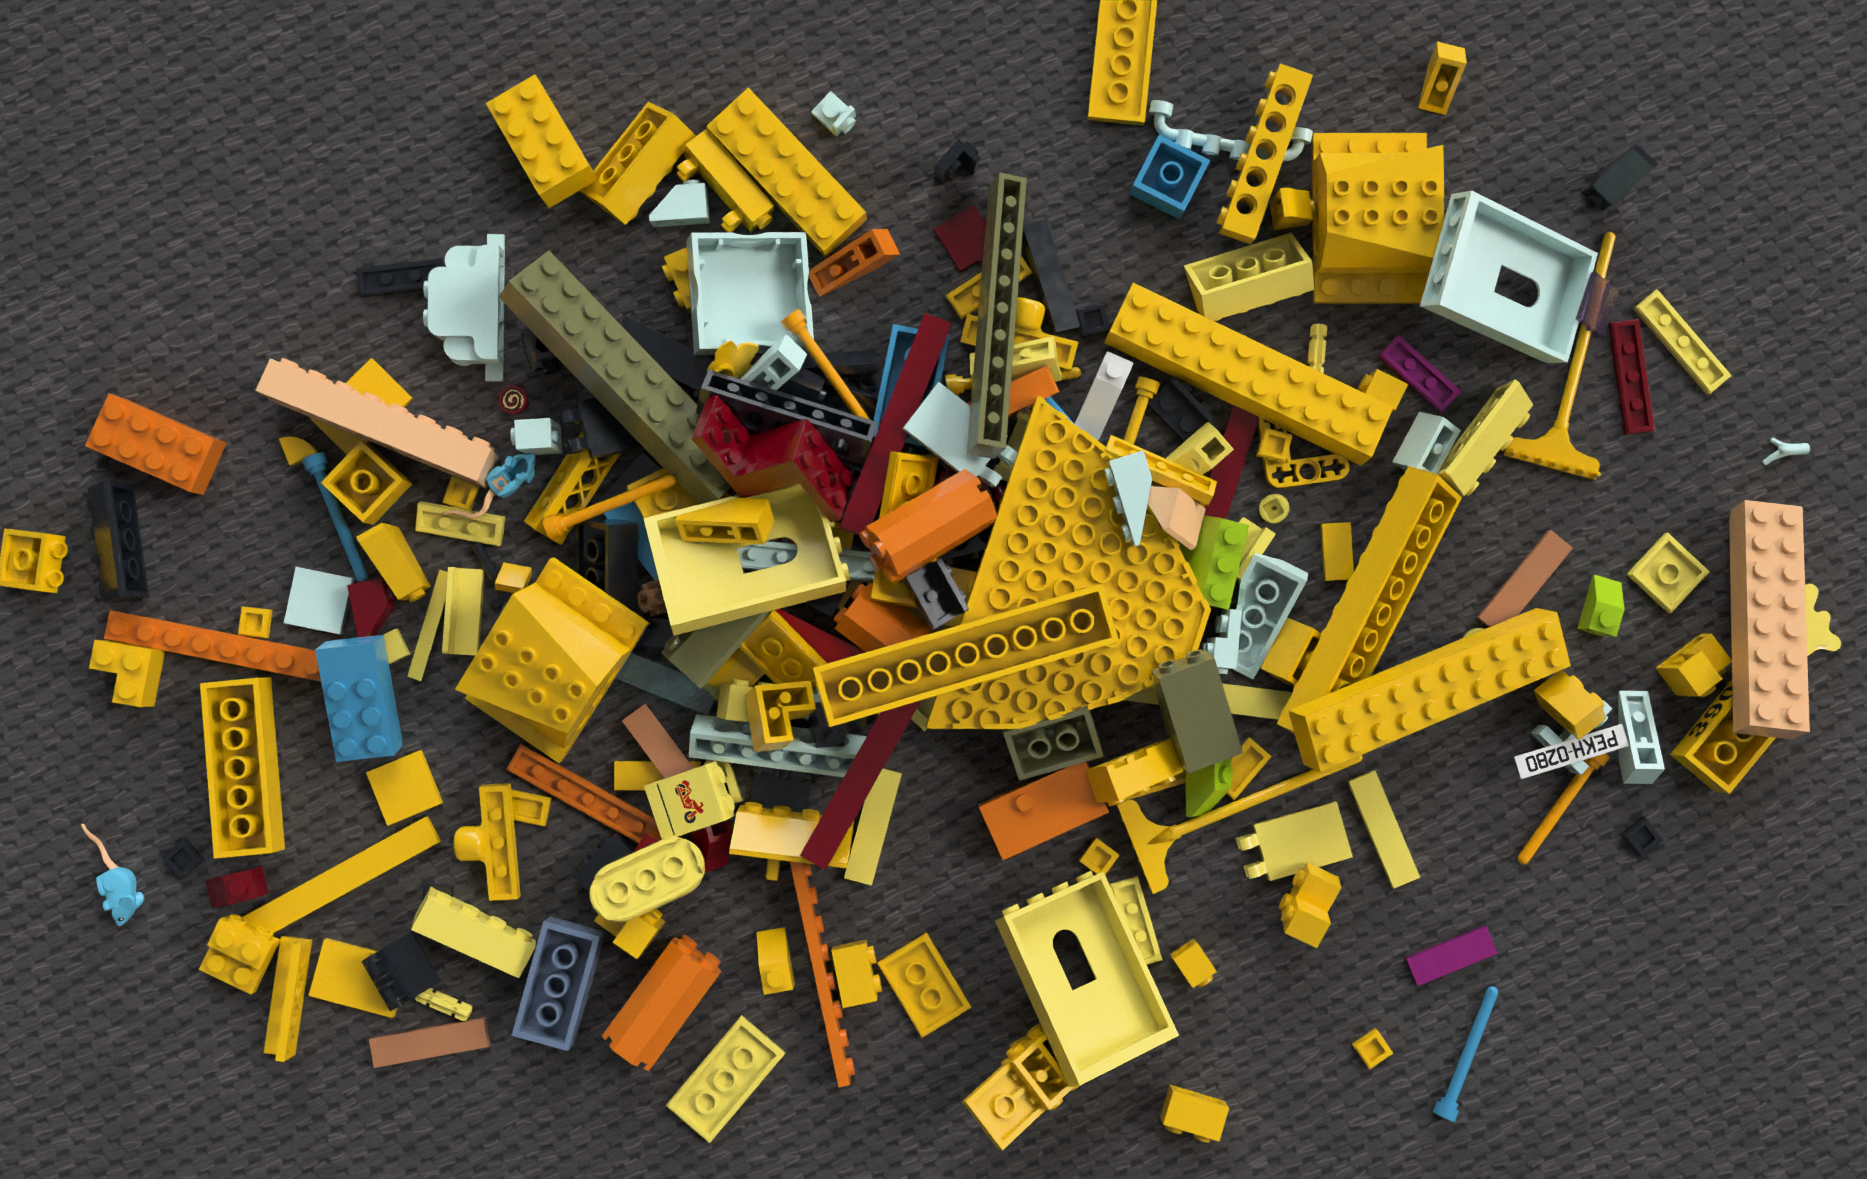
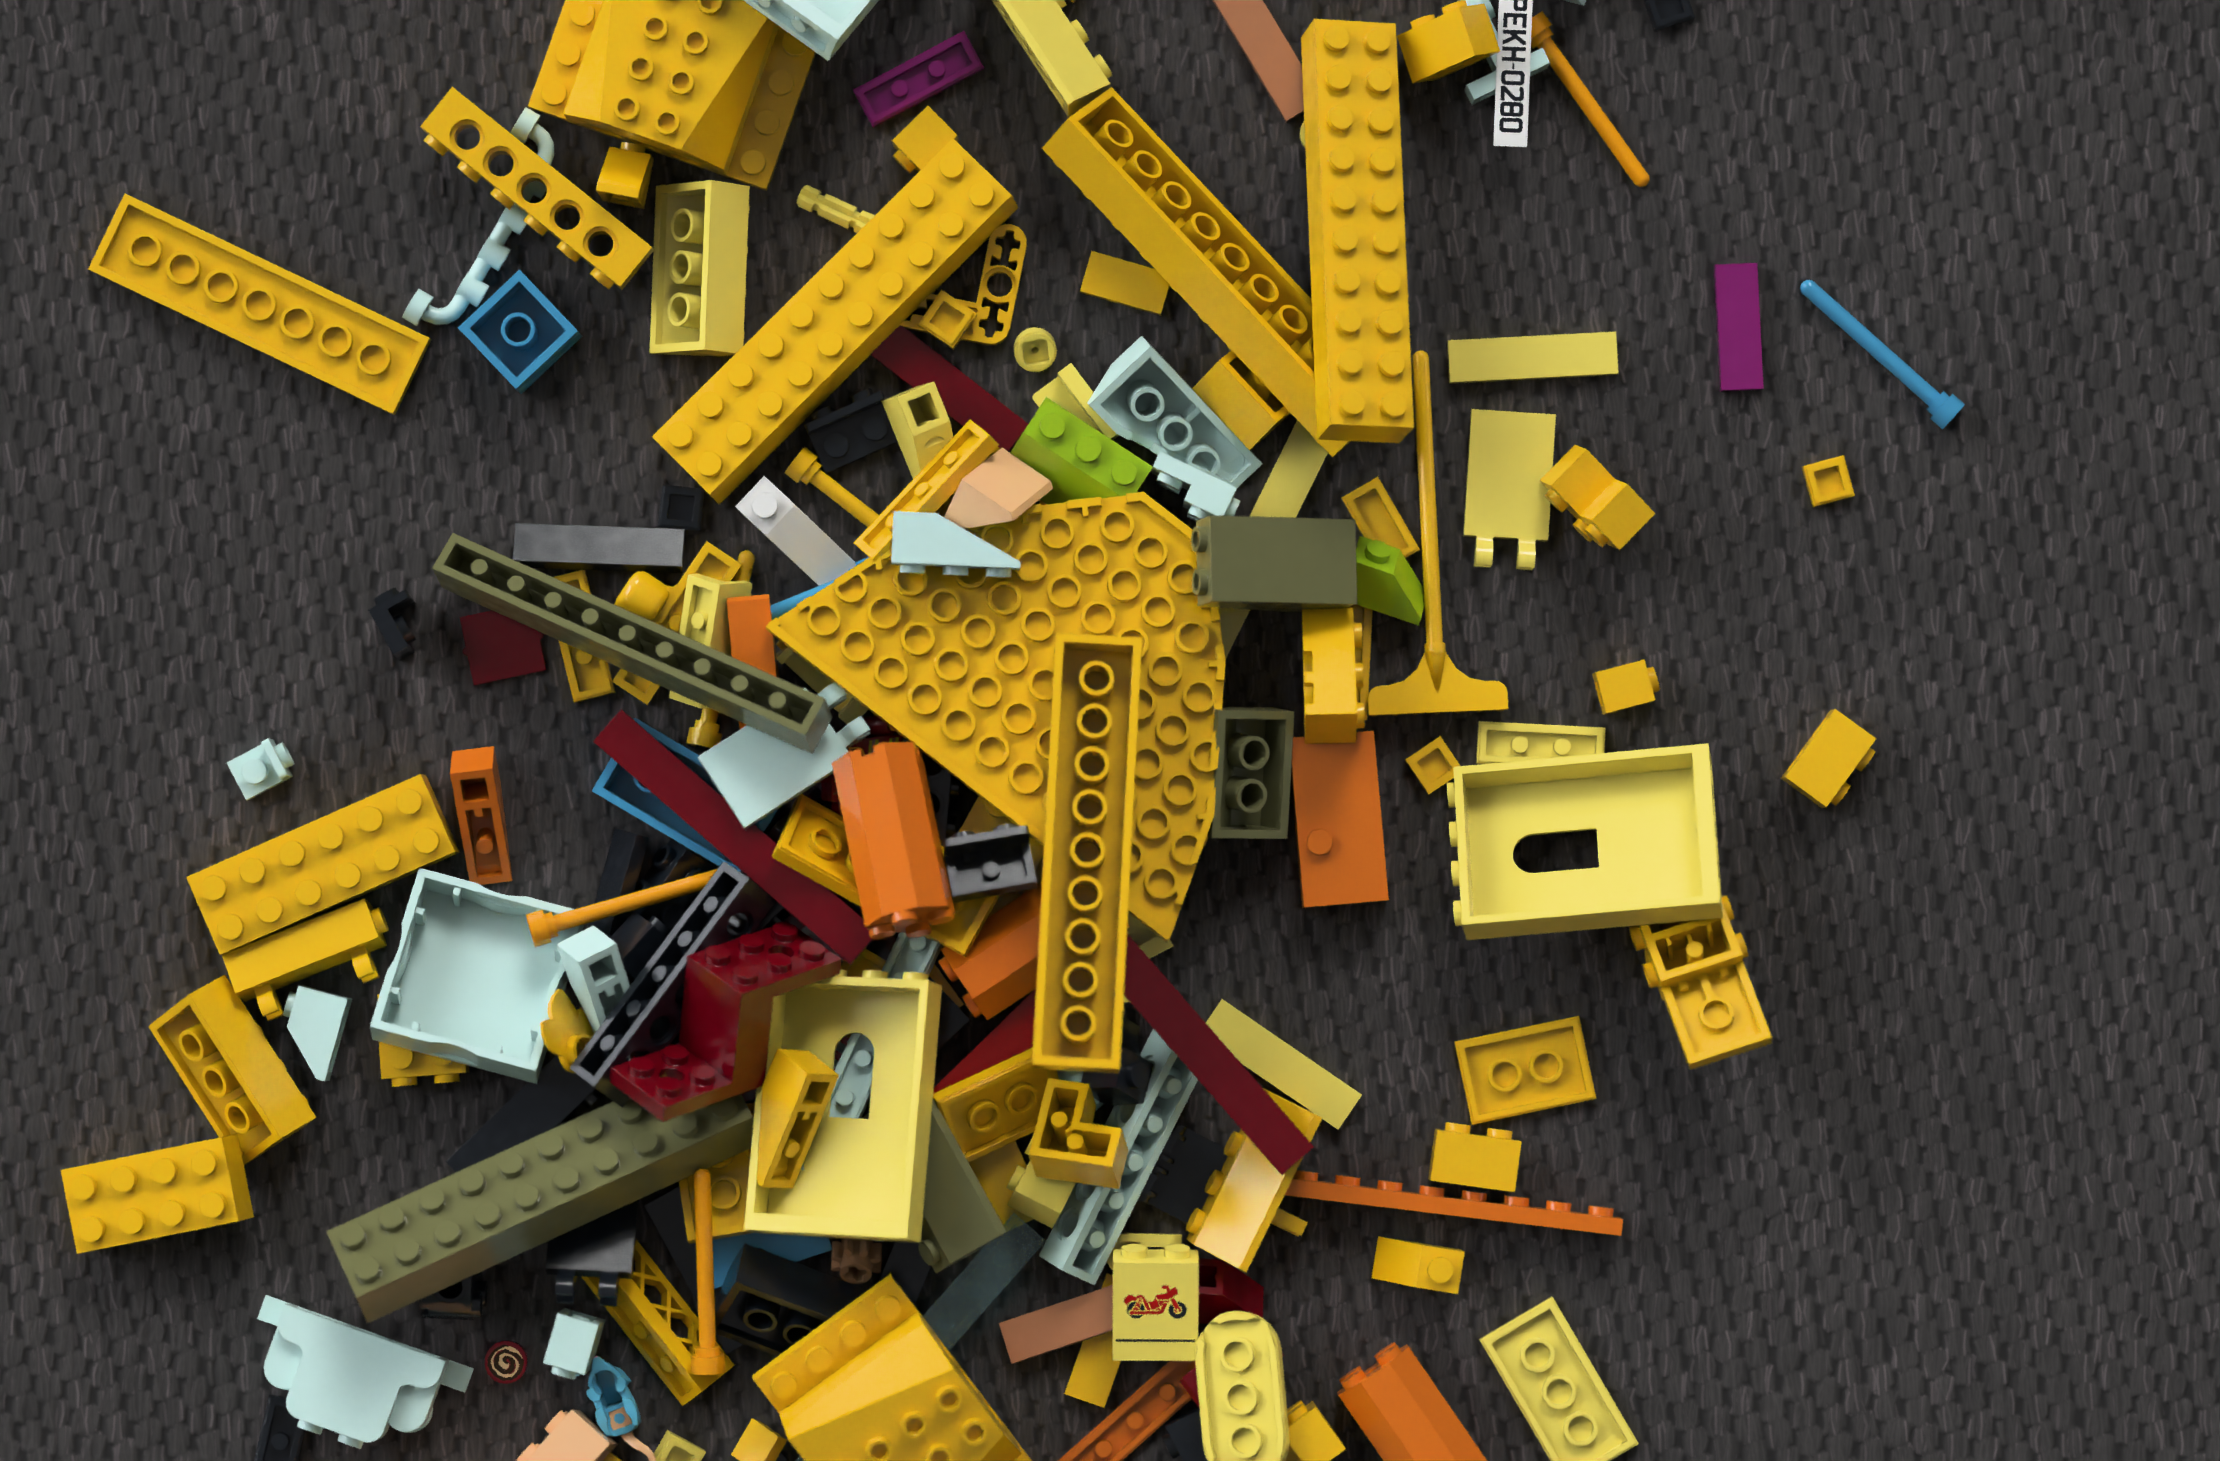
camera: 70 degrees left, 0 degrees up
(1427, 443) = (1021, 108): light aqua brick -> none

